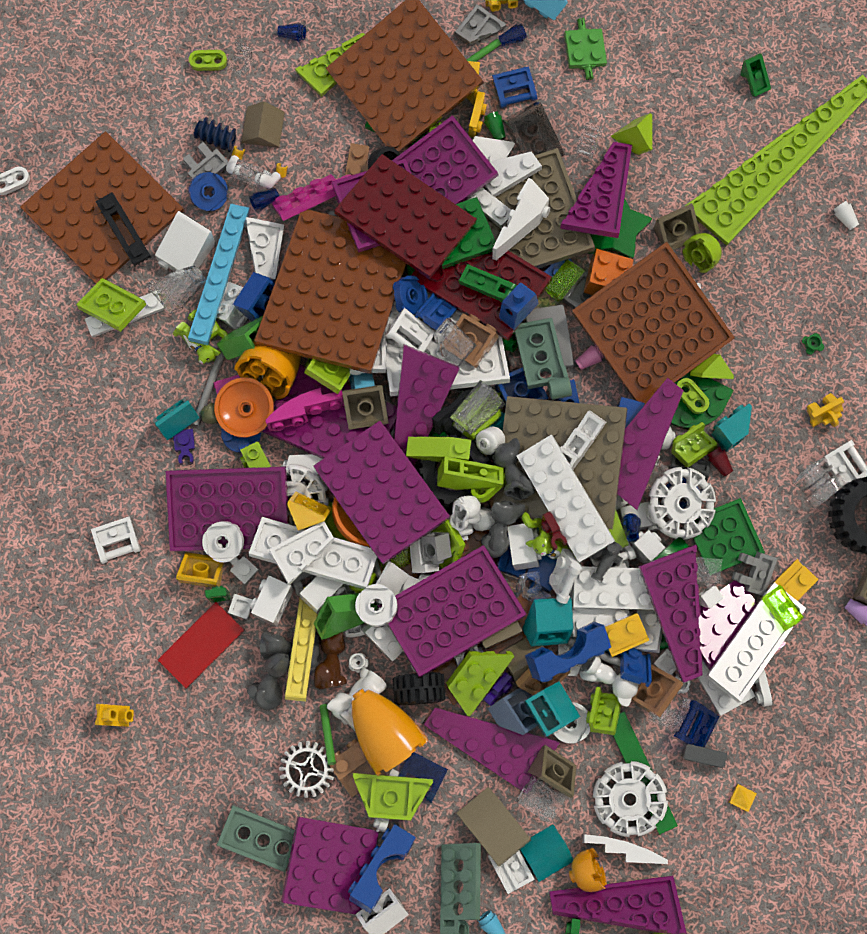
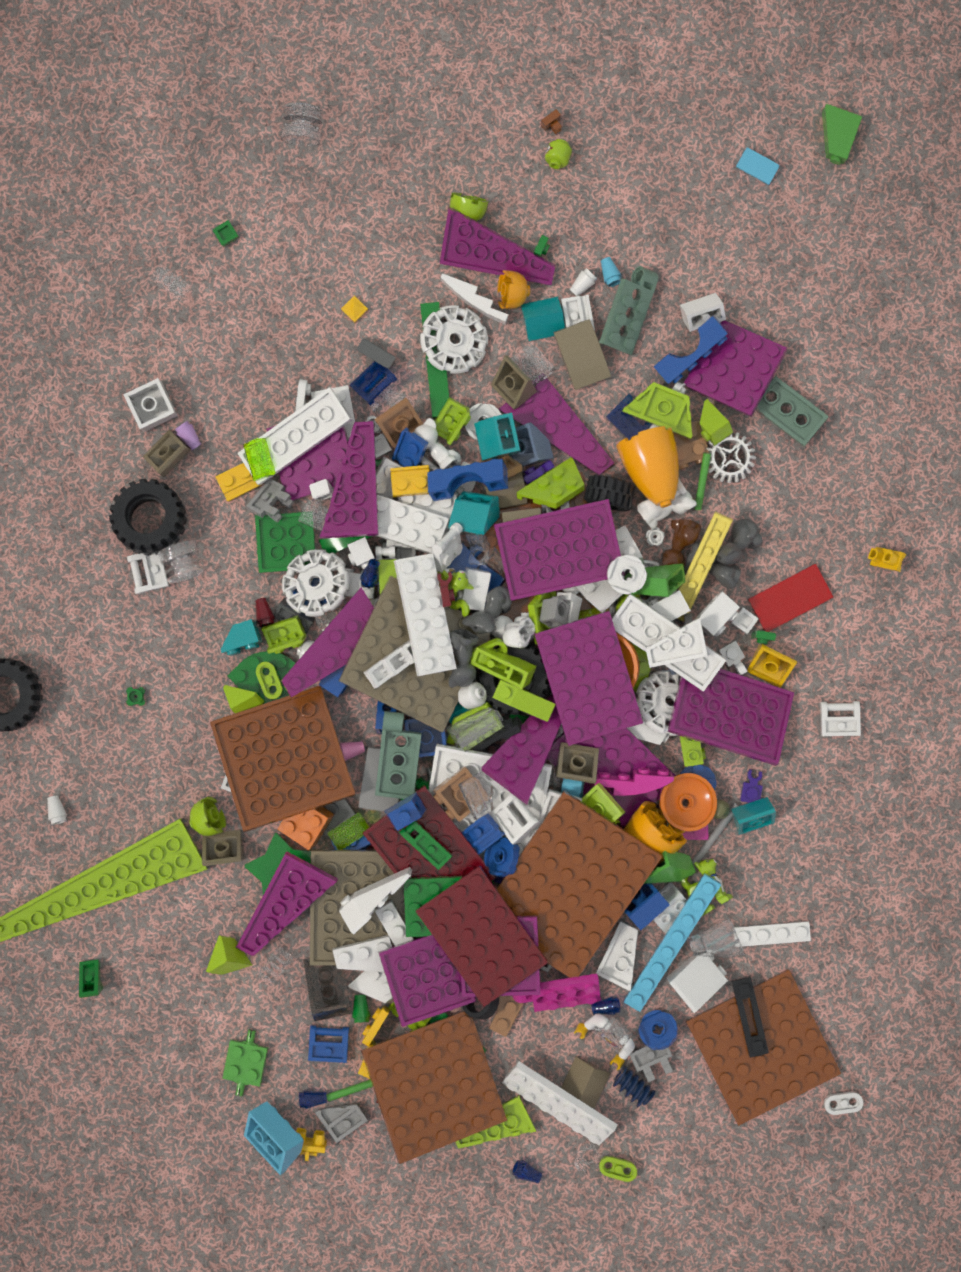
camera: 160 degrees left, 10 degrees up
(111, 304) = (782, 944): lime plate -> none
(231, 533) = (737, 690): white plate -> none
(280, 97) = (559, 1103): none -> white plate
(307, 511) = (660, 683): yellow slope -> none
(334, 796) = (714, 424): none -> lime slope
(516, 907) = (583, 282): none -> white cone
(609, 556) = (405, 548): dark grey piece -> none
(827, 414) = (145, 625): yellow hips -> none

